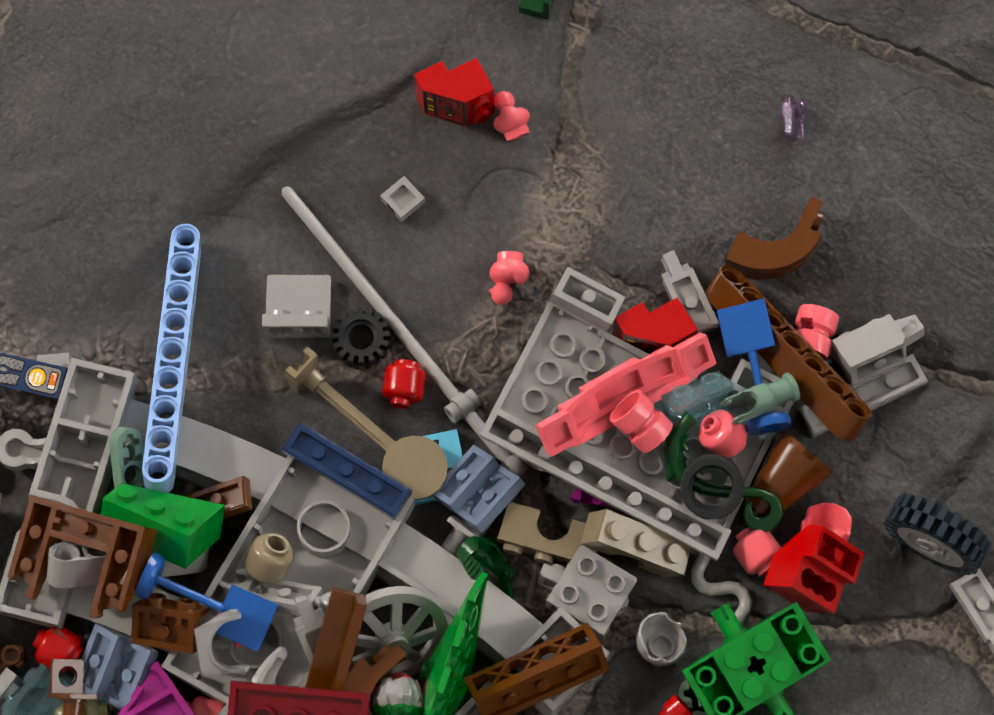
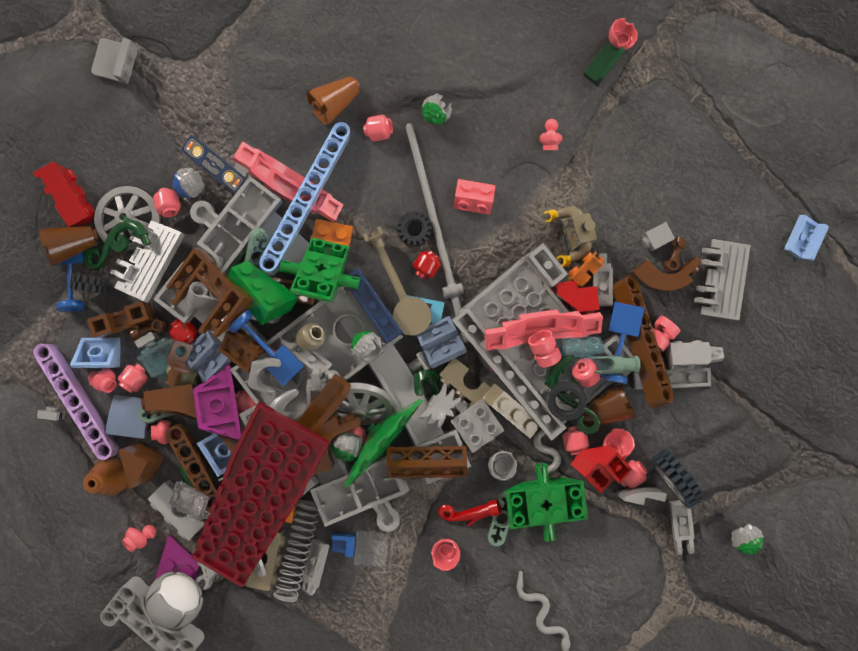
camera: 25 degrees right, 15 degrees up
(127, 347) = (283, 180): none -> coral piece
(150, 198) = (332, 98): none -> dark orange cone
(235, 401) = (332, 232): none -> orange bracket
(240, 212) = (378, 128): none -> coral head
(244, 449) = (320, 271): none -> green slope
(297, 306) = (387, 195): light grey bracket -> none
(316, 151) = (434, 110): none -> green piece
(363, 533) = (366, 346): none -> light grey piece
(402, 198) = (470, 158): light grey plate -> none
(433, 253) = (474, 196): none -> coral bracket
(455, 95) = (527, 112): red piece -> none
(507, 270) = (510, 225): coral animal -> none
(520, 585) = (440, 406): none -> light grey piece
(613, 236) = (577, 231): none -> dark tan torso
(655, 273) = (590, 263): none -> orange hinge
(739, 195) = (657, 237): none -> light grey brick
(781, 225) = (673, 264): none -> reddish brown bar
(793, 114) = (708, 202): clear purple piece -> none
(873, 217) = (726, 279): none -> light grey hinge
(875, 566) = (636, 476): none -> coral head
(893, 588) = (640, 493): none -> light grey slope
(961, 106) = (806, 238): none -> light blue bracket

